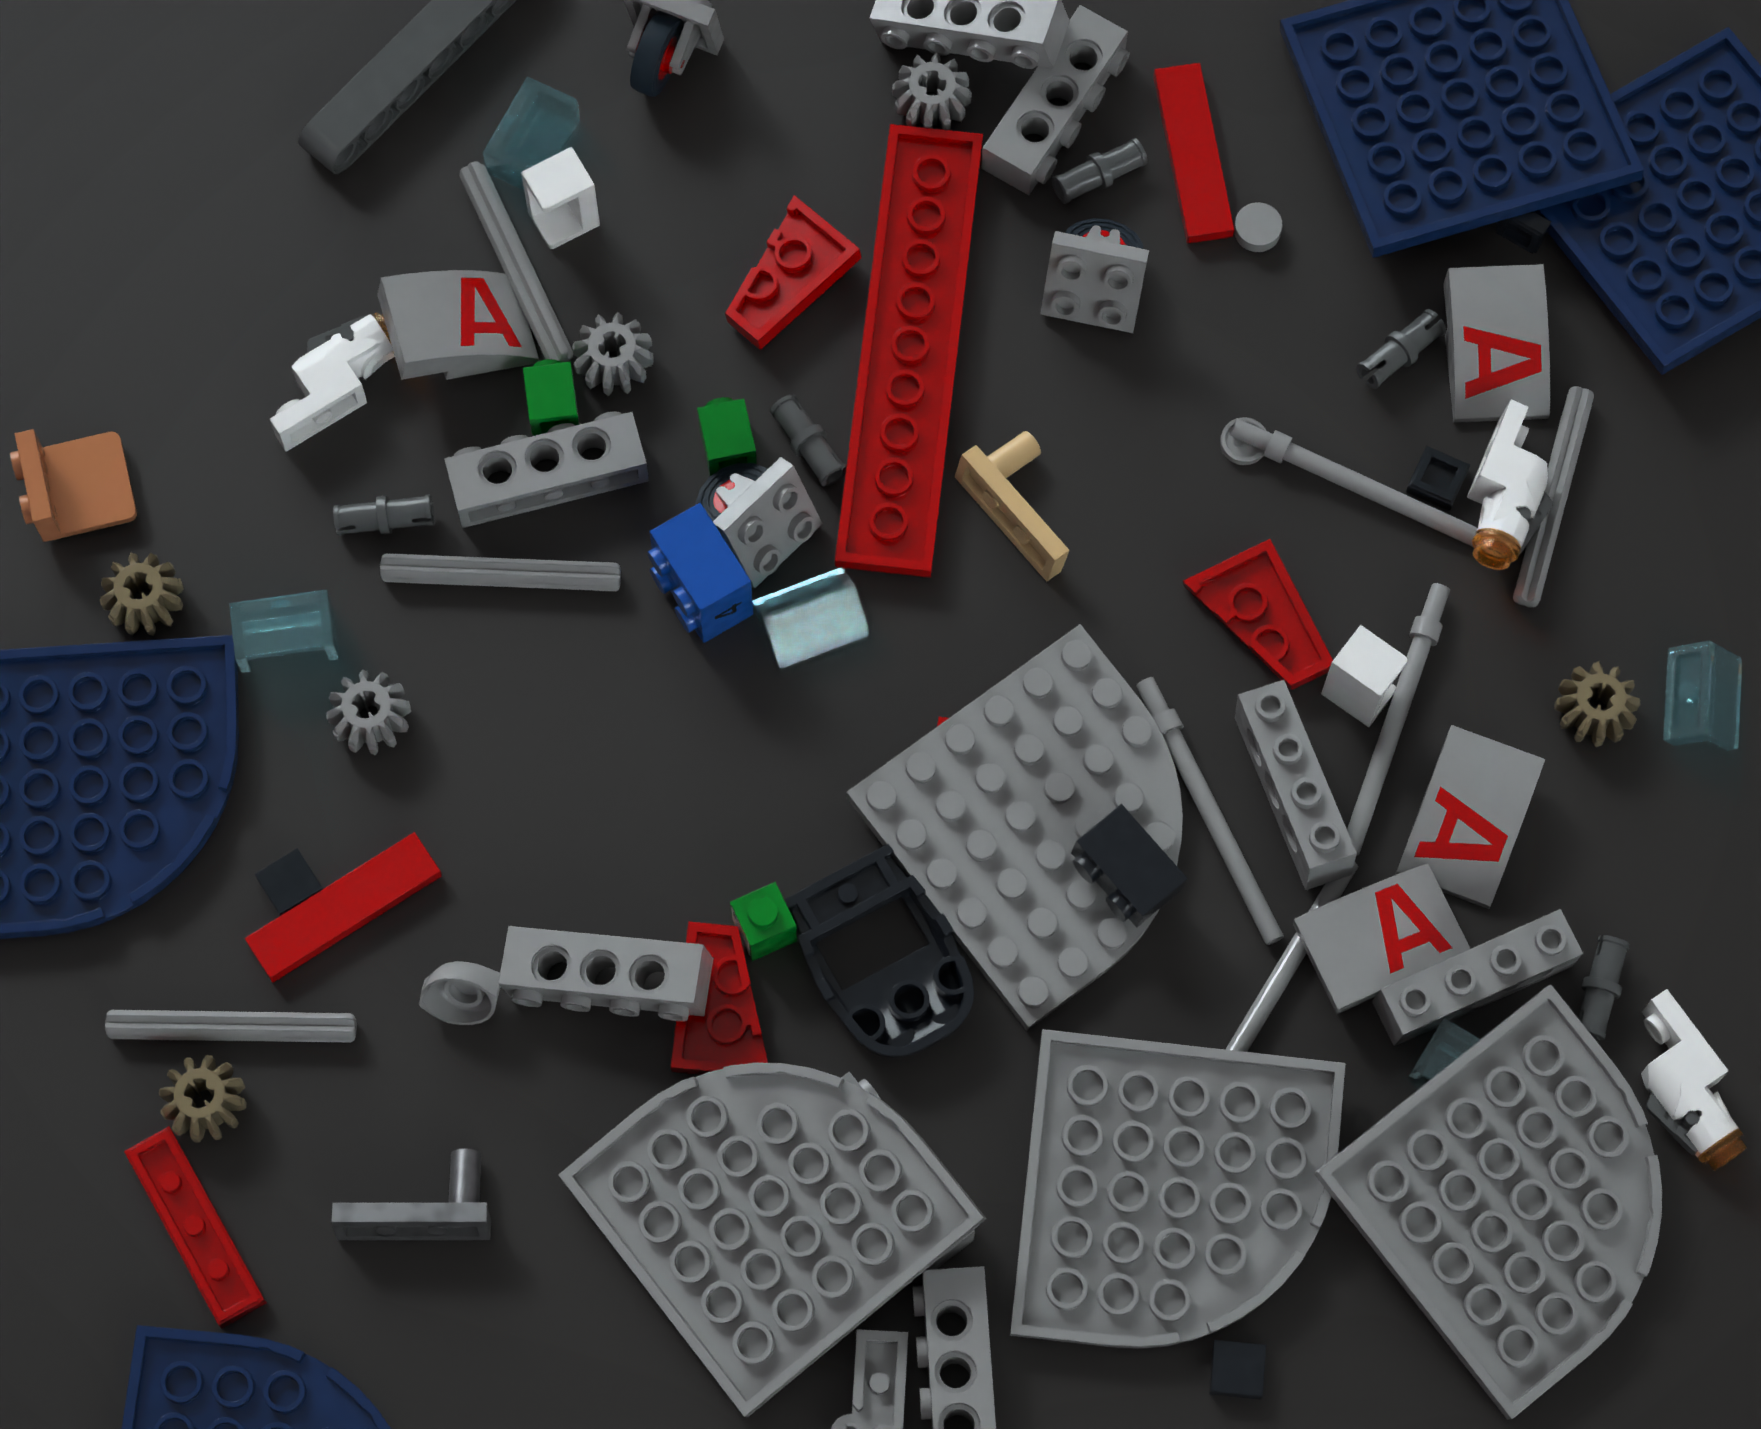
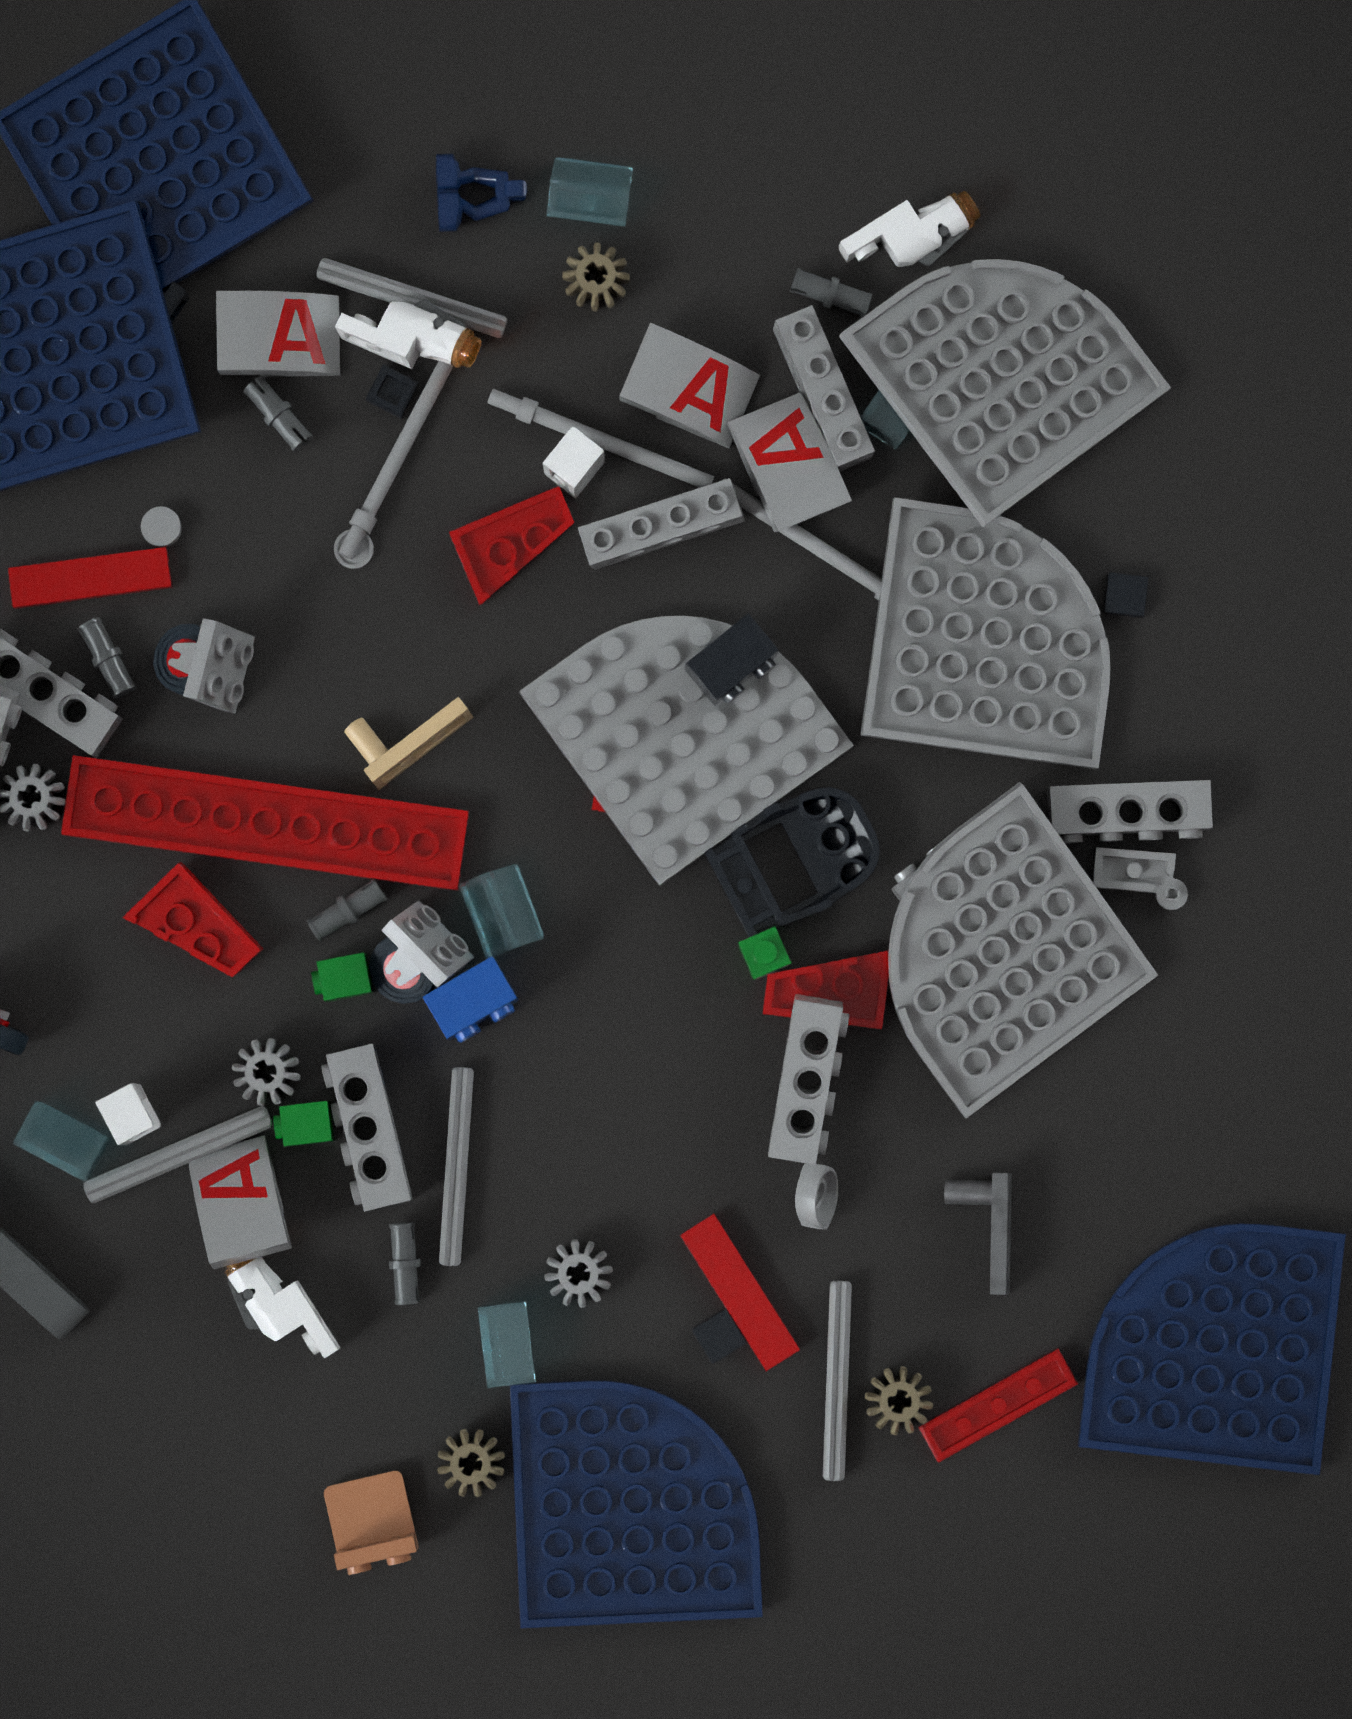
camera: 90 degrees left, 15 degrees up
(1170, 727) = (603, 623): light grey bar -> none
(1699, 529) = (451, 204): none -> dark blue piece

